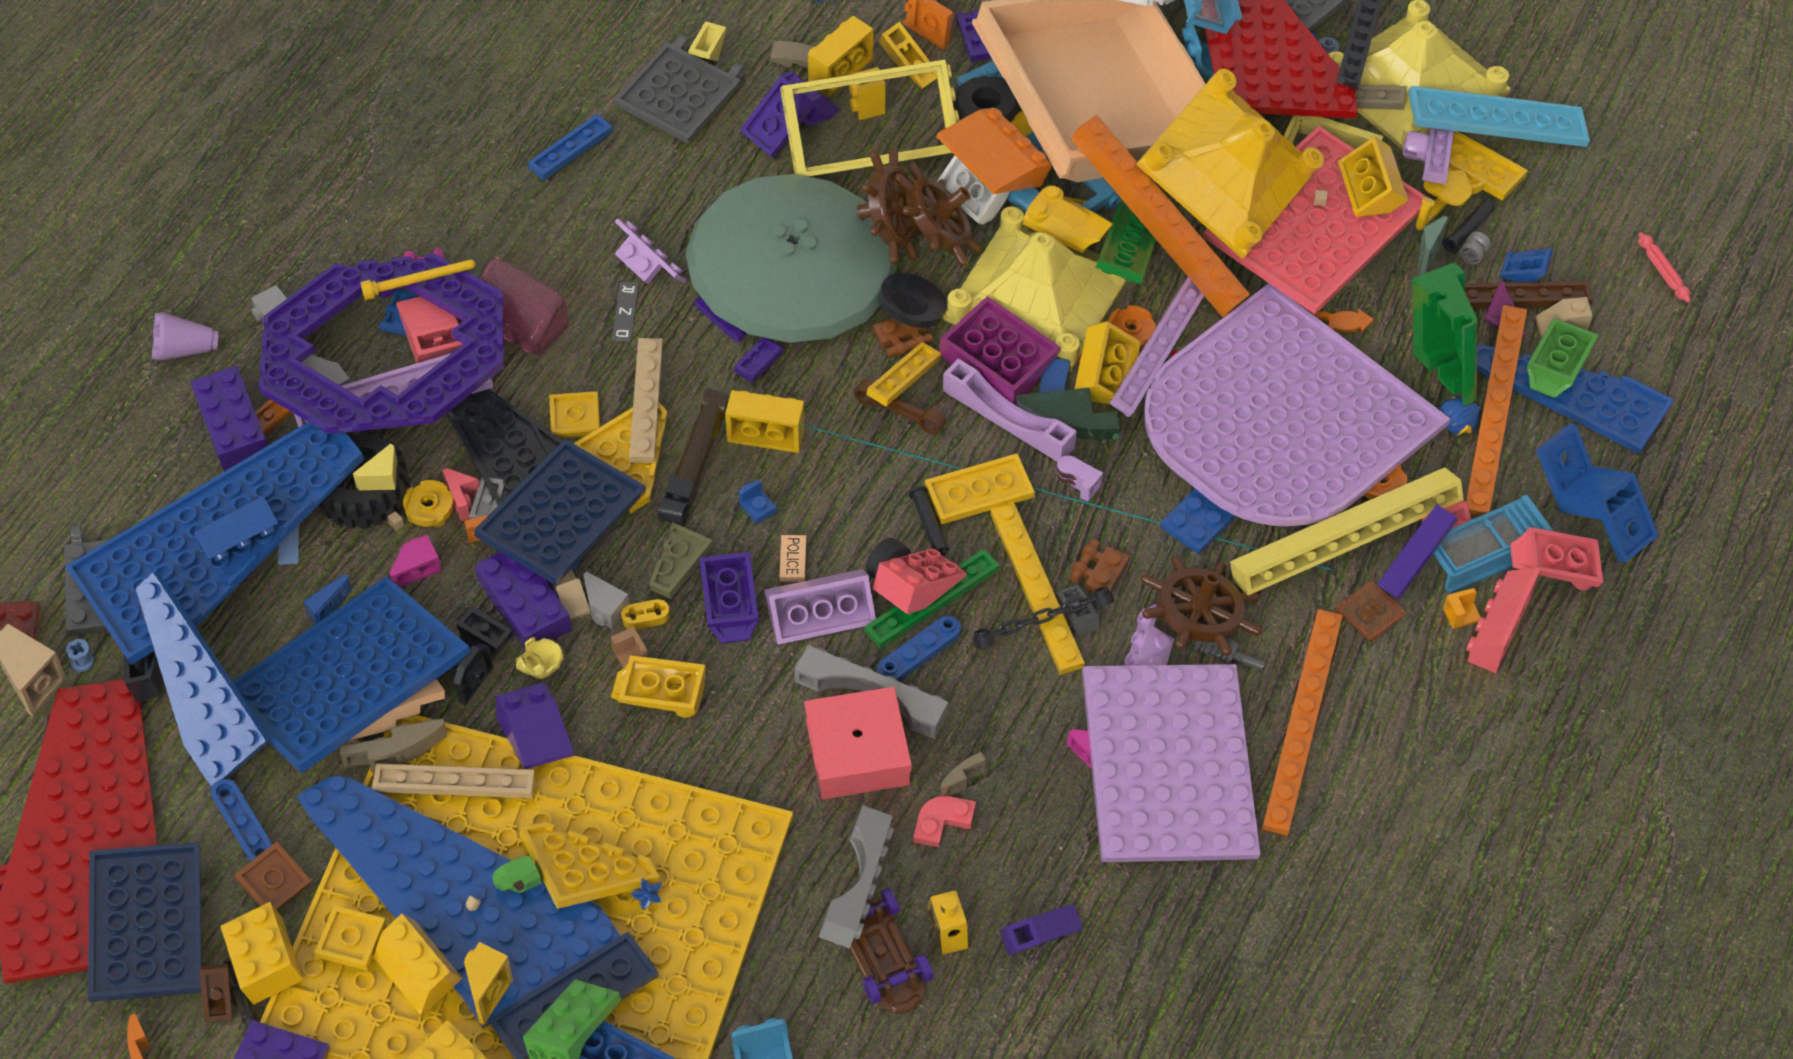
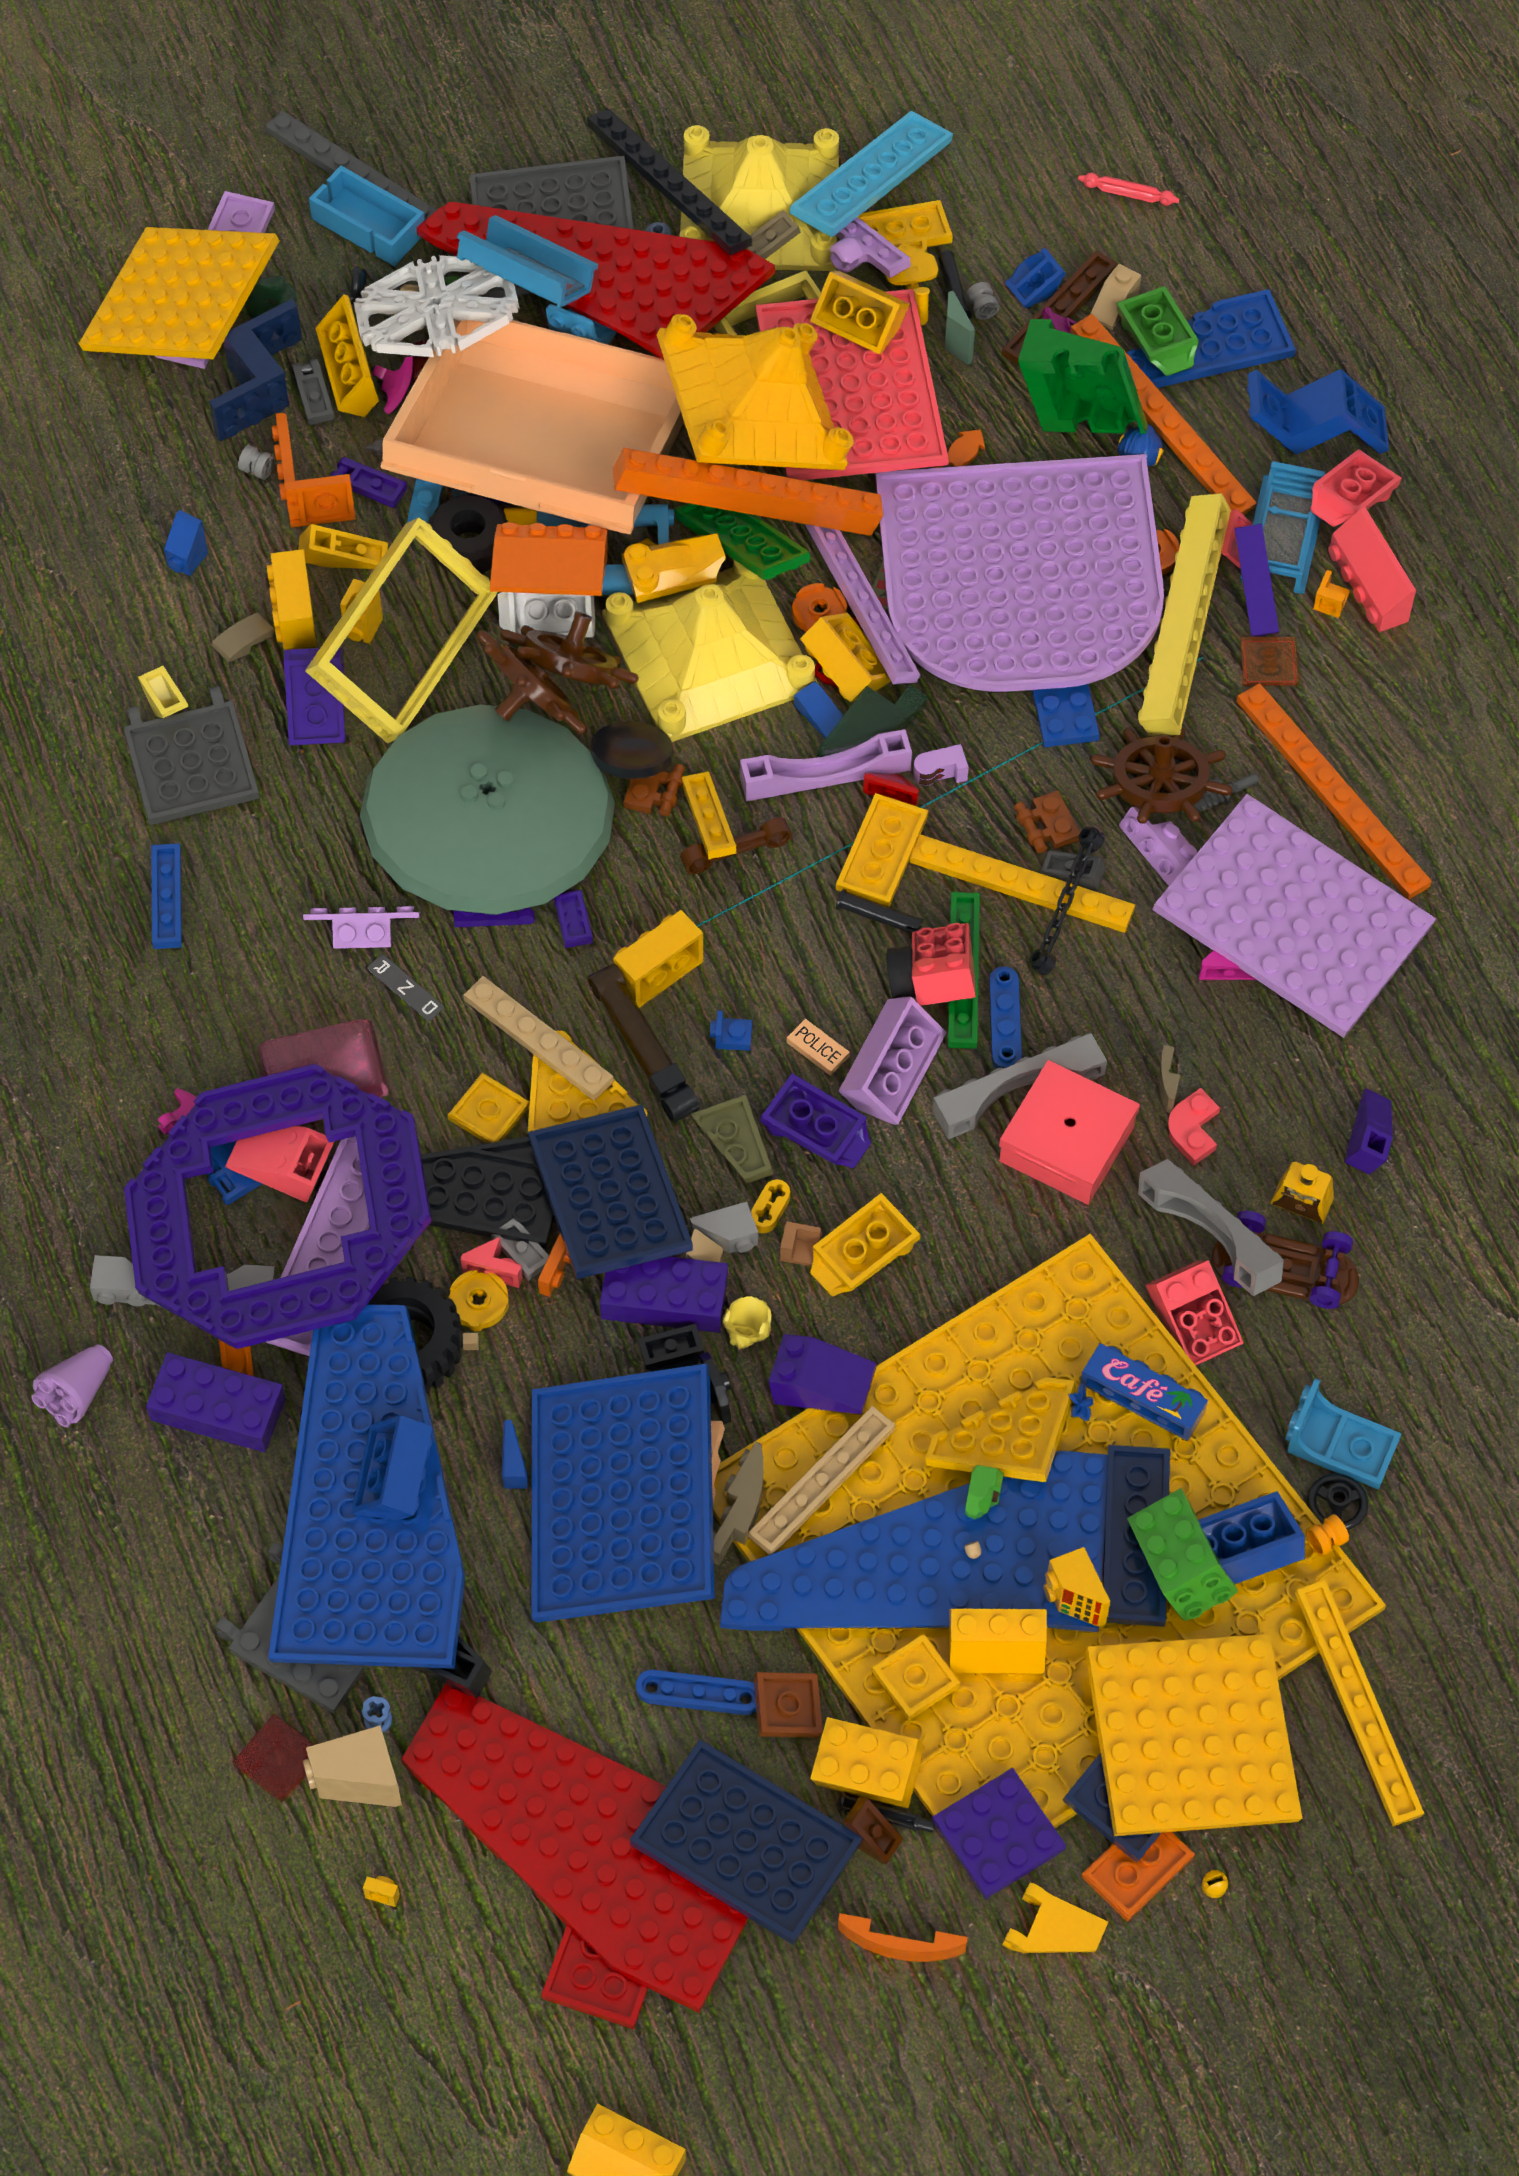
camera: 50 degrees left, 5 degrees up
(207, 706) = (562, 1631): wing -> none
(372, 288) = (199, 1172): yellow piece -> none
(378, 472) = (437, 1306): light yellow slope -> none
(415, 561) = (537, 1351): dark pink slope -> none
(690, 925) = (1144, 1391): none -> blue brick
(790, 920) = (1195, 1311): none -> coral slope
(1000, 348) = (754, 721): magenta slope -> none
(1035, 460) = (891, 786): none -> red slope
(1320, 197) = (837, 363): tan piece -> none

